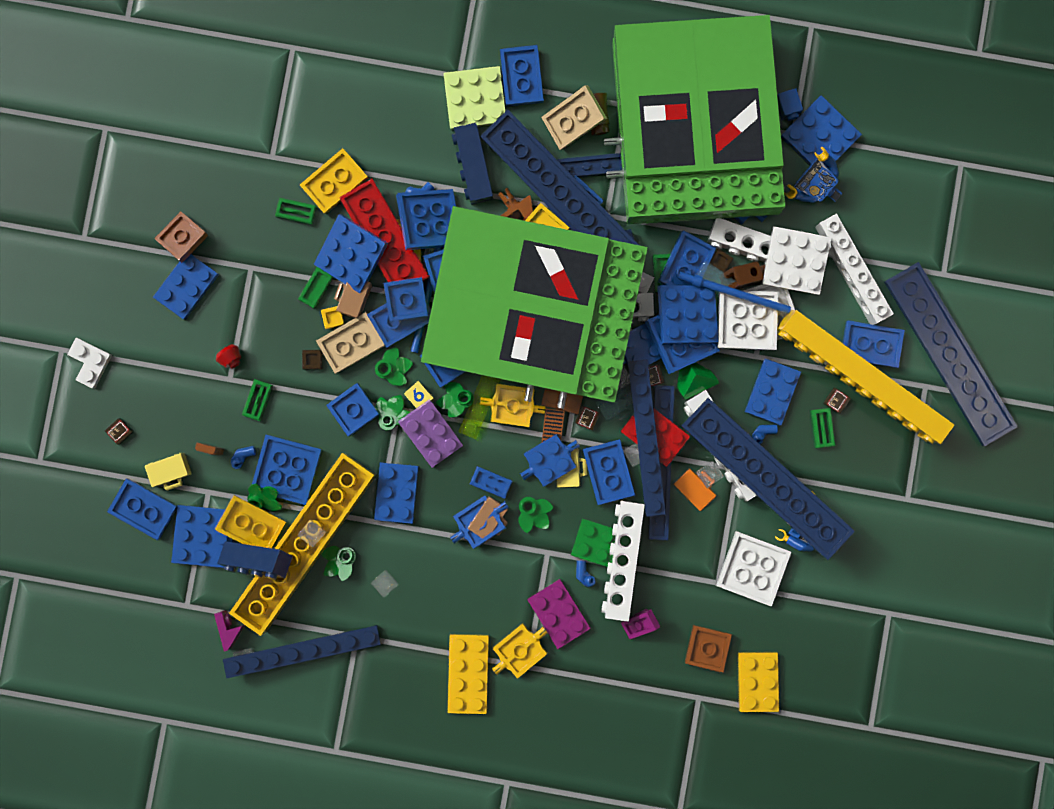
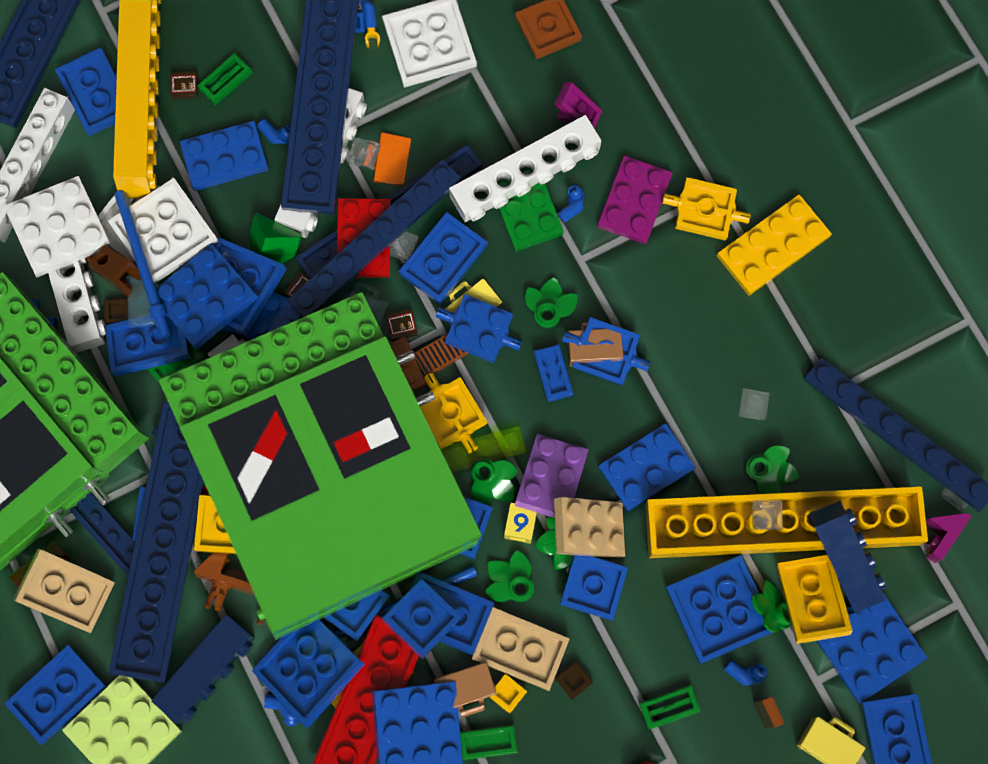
camera: 130 degrees left, 10 degrees down
(384, 430) = (589, 527): none -> tan plate

